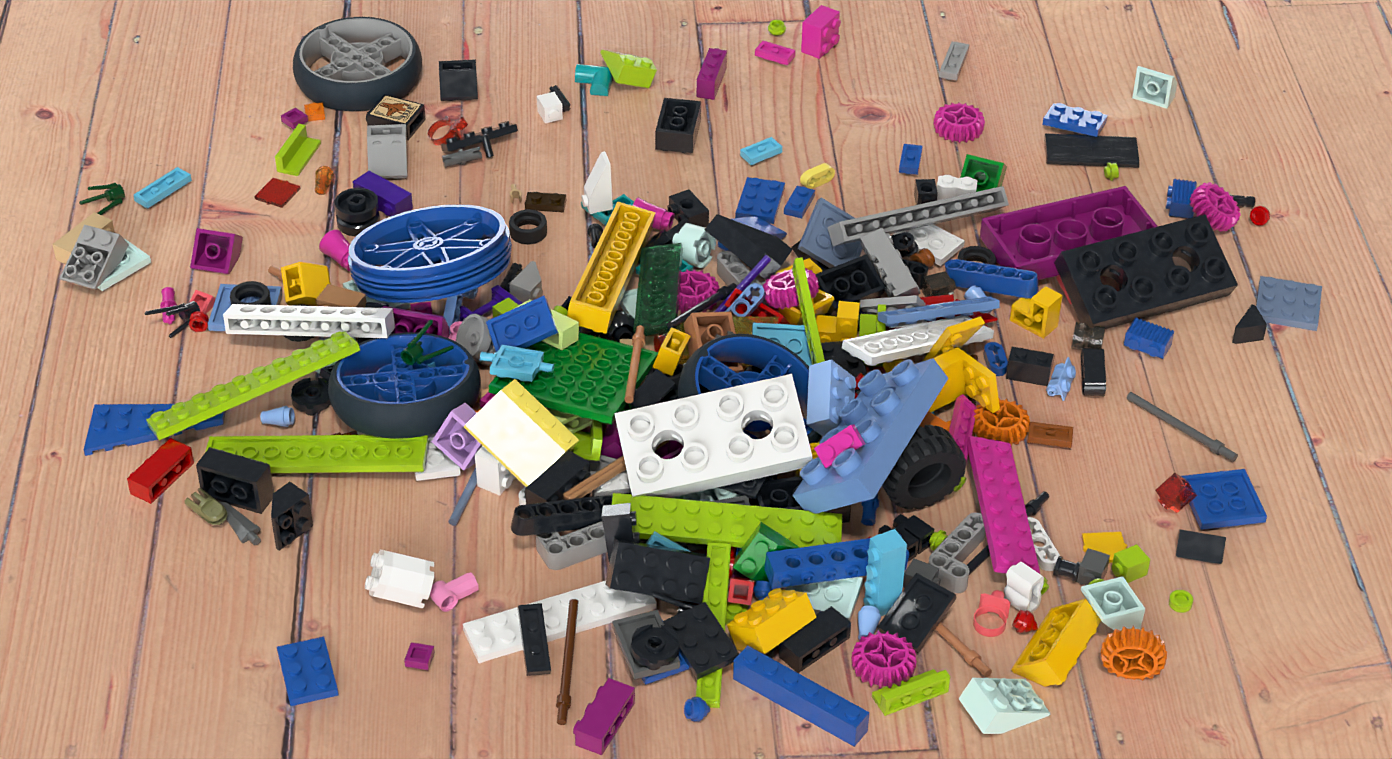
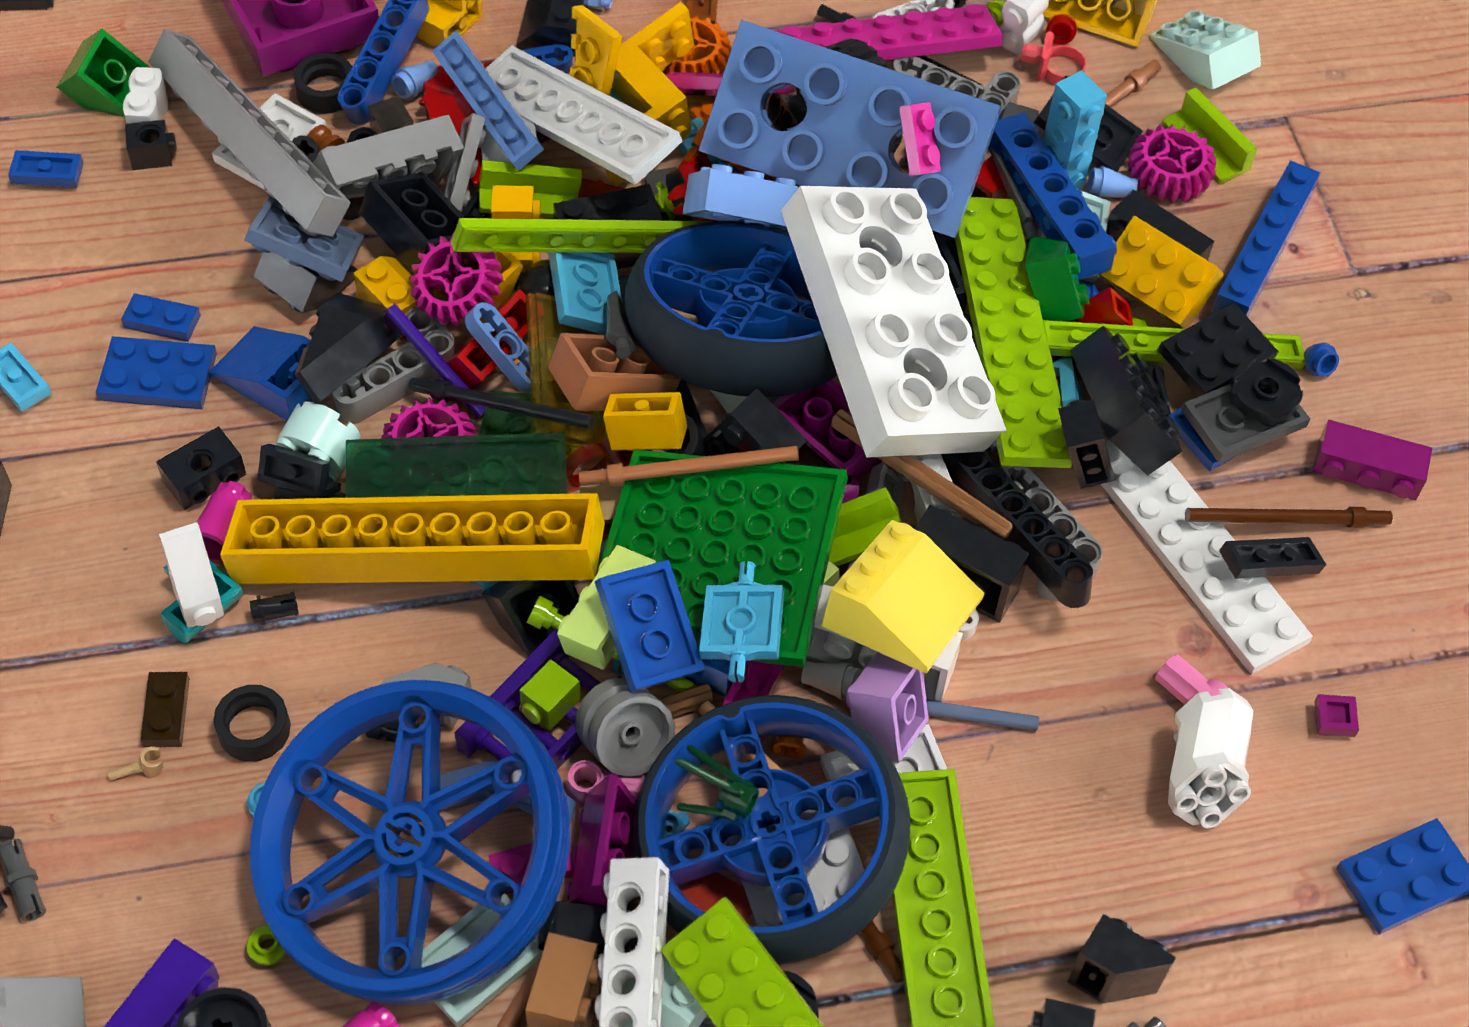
camera: 100 degrees left, 15 degrees up
(817, 176) = (96, 290): light yellow beam -> none

